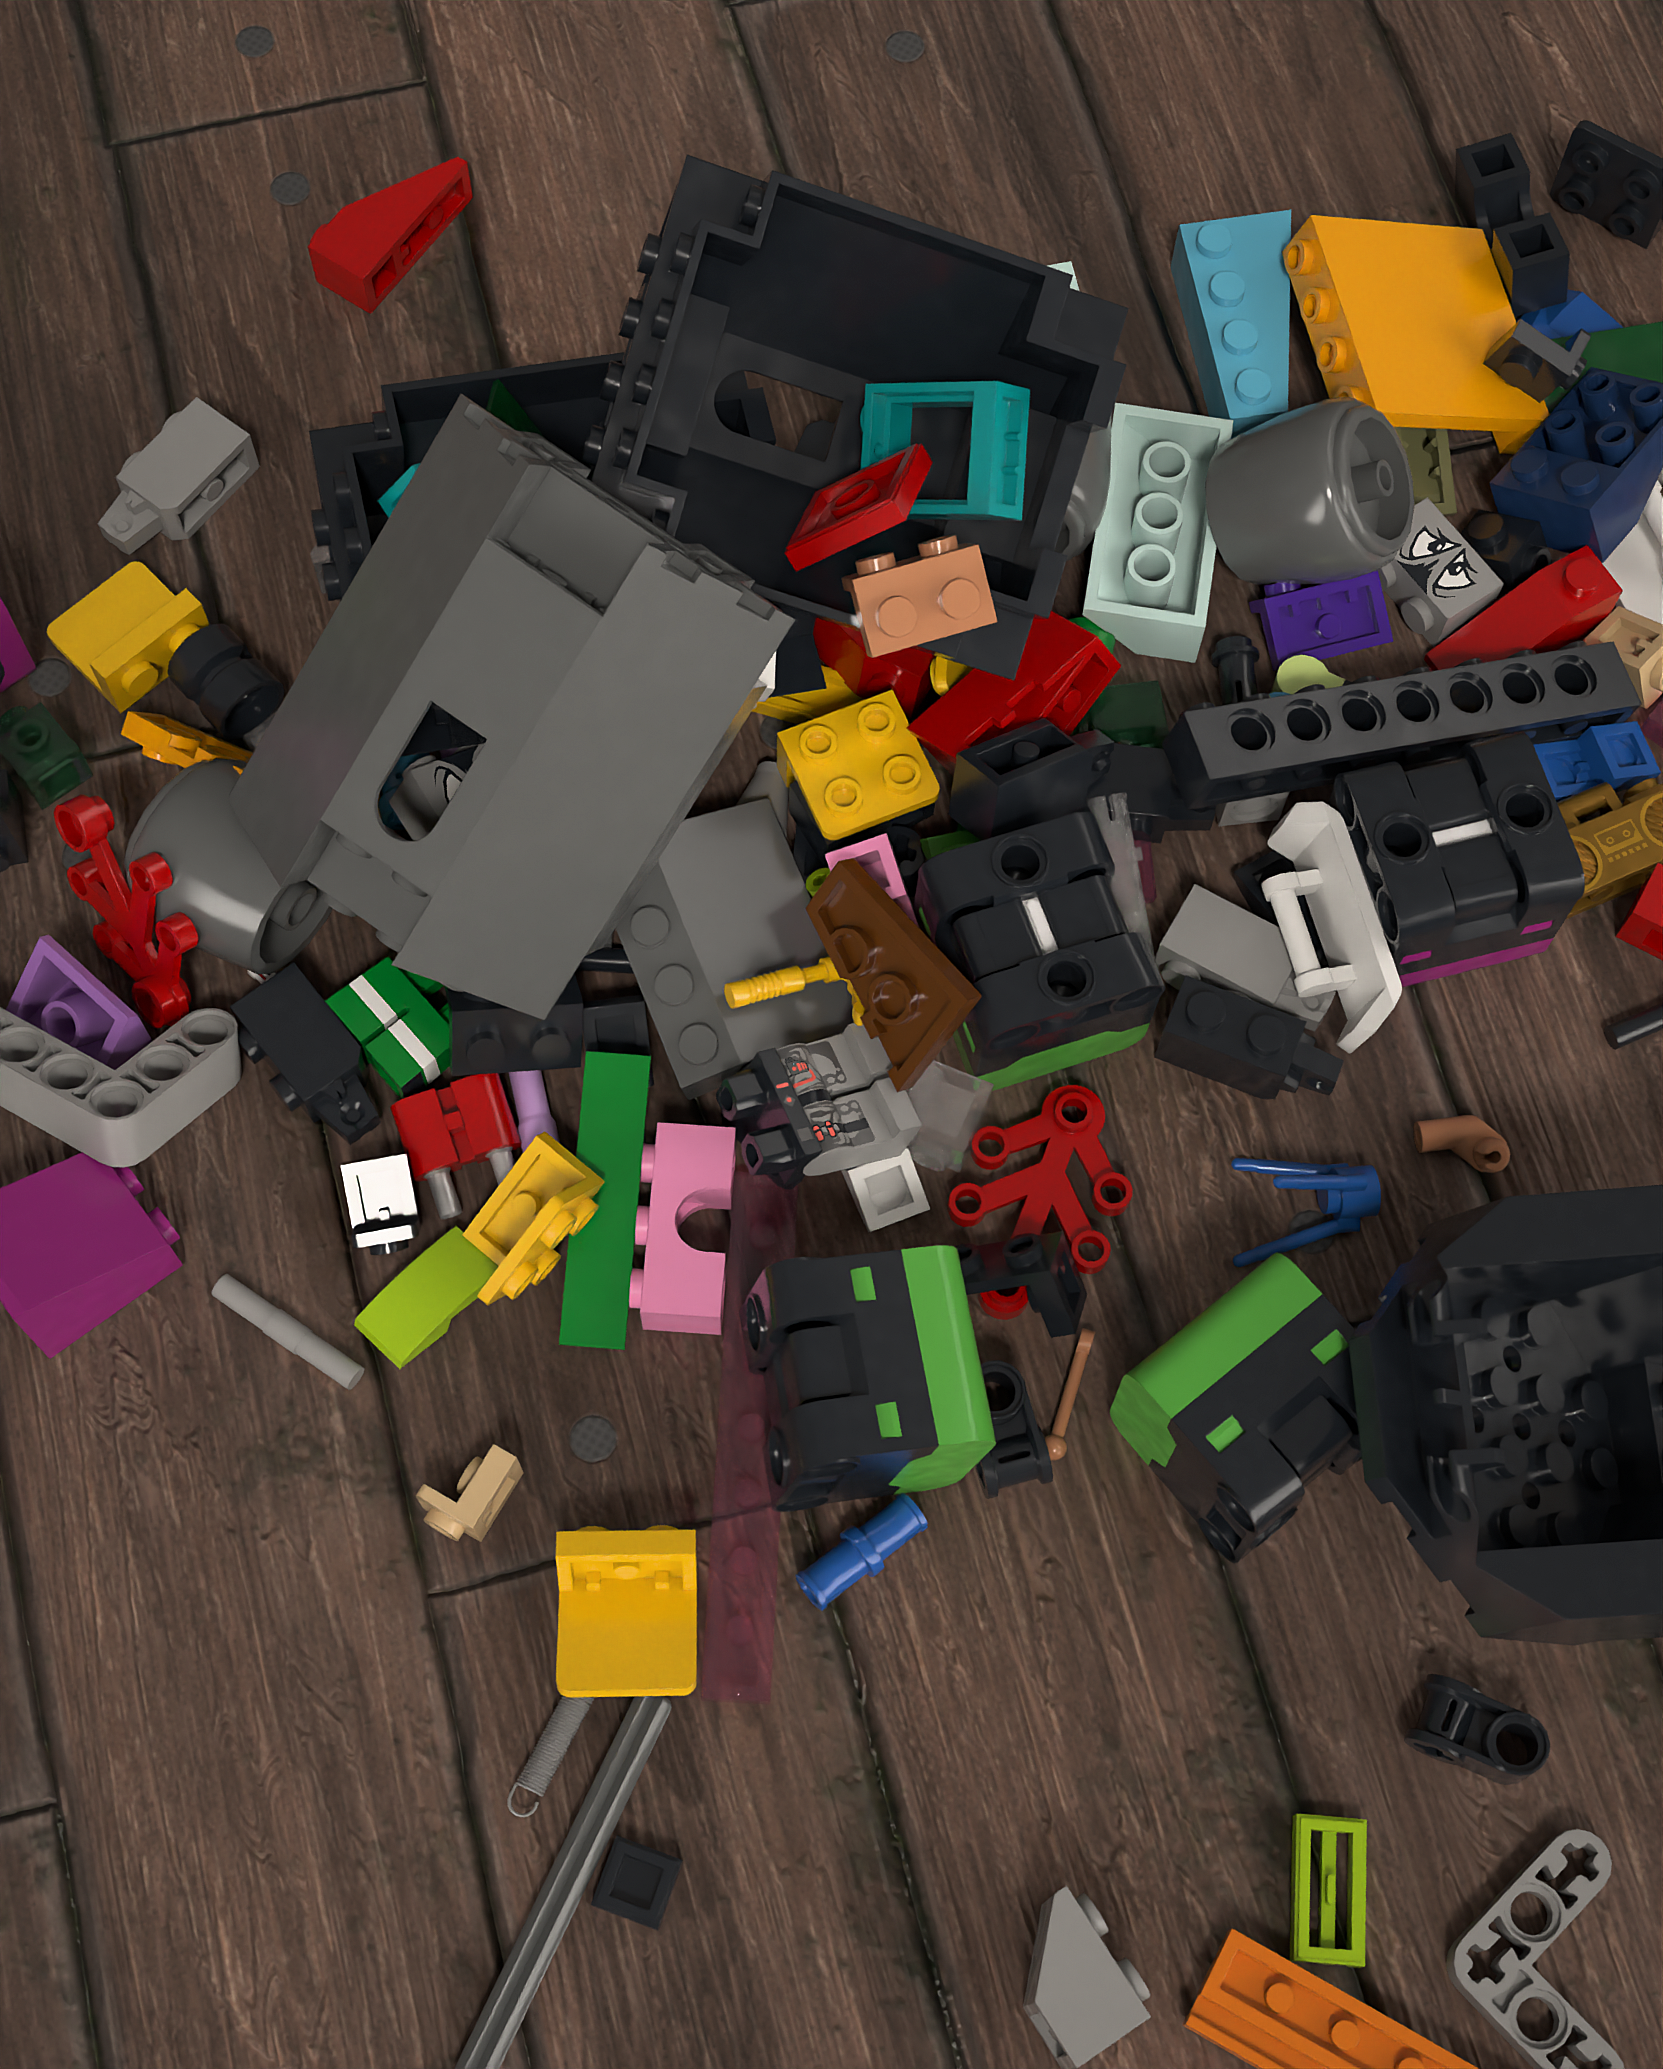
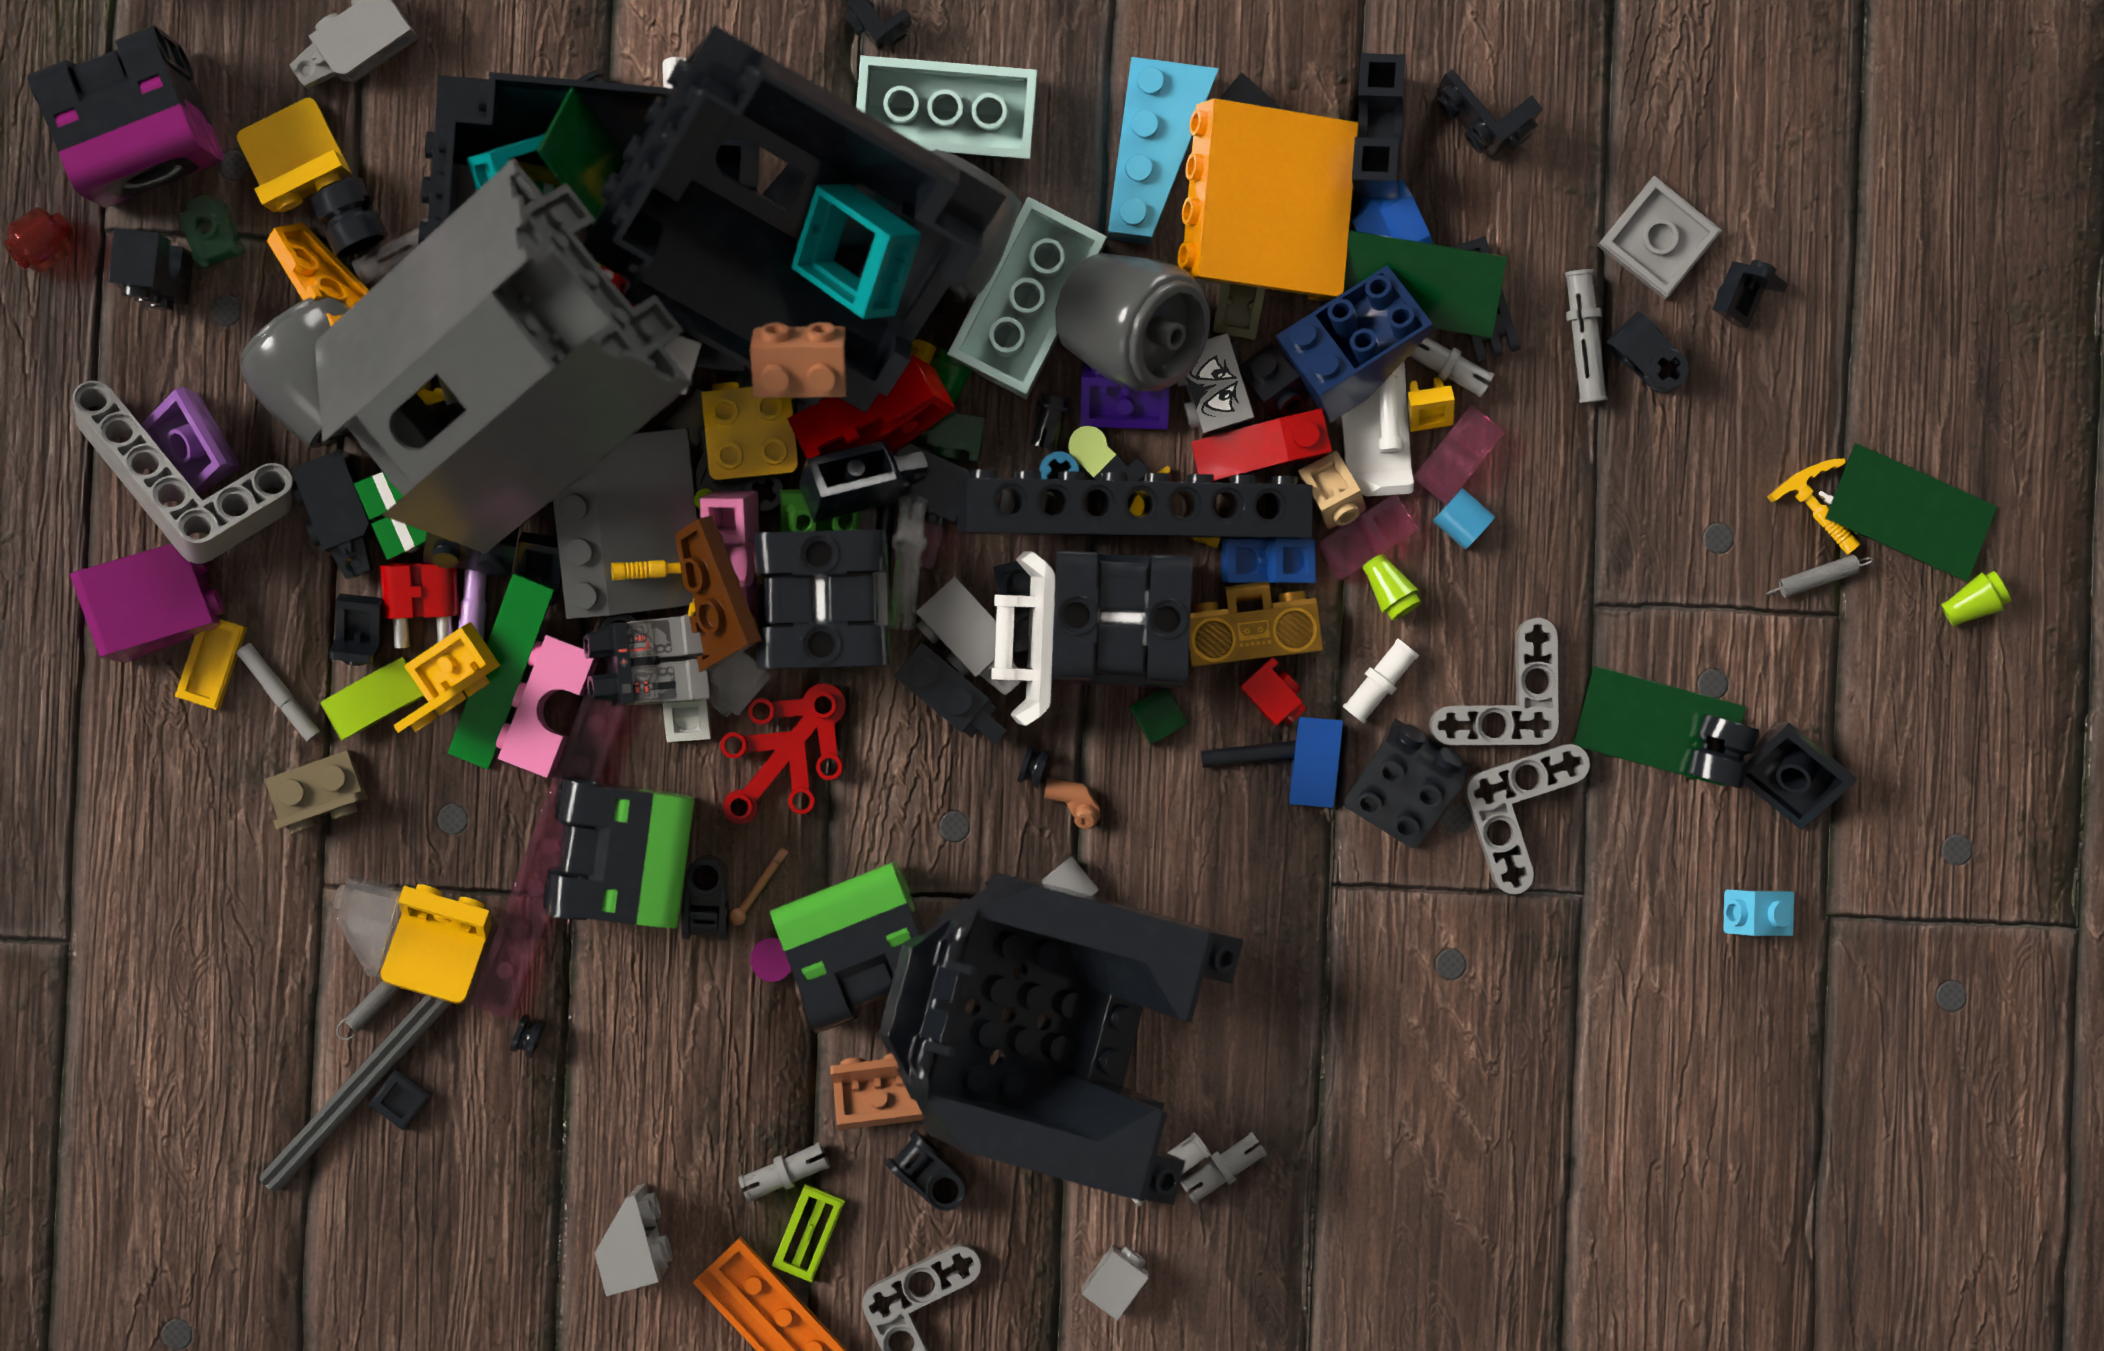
camera: 15 degrees right, 20 degrees up
(129, 916) = (239, 385): red plant -> none
(177, 1324) = (211, 665): none -> yellow tile
(380, 1454) = (315, 790): none -> dark tan bracket
(483, 1493) = (371, 838): tan bracket -> none
(513, 1611) = (368, 919): none -> clear slope
(805, 1716) = (527, 1036): none -> black bush
(859, 506) = (780, 282): red plate -> none
(861, 1551) = (593, 947): blue pin -> none
(1034, 1261) = (749, 800): black bracket -> none
(1126, 1491) = (769, 960): none -> magenta tile
(1259, 1805) = (784, 1172): none -> light grey pin
(1340, 1191) = (980, 812): blue plant -> none
(1354, 1631) = (871, 1094): none -> nougat bracket
(1391, 1108) = (1033, 766): none -> black bush
(1527, 999) = (1158, 715): none -> dark green slope
(1536, 362) = (1333, 258): black bracket -> none

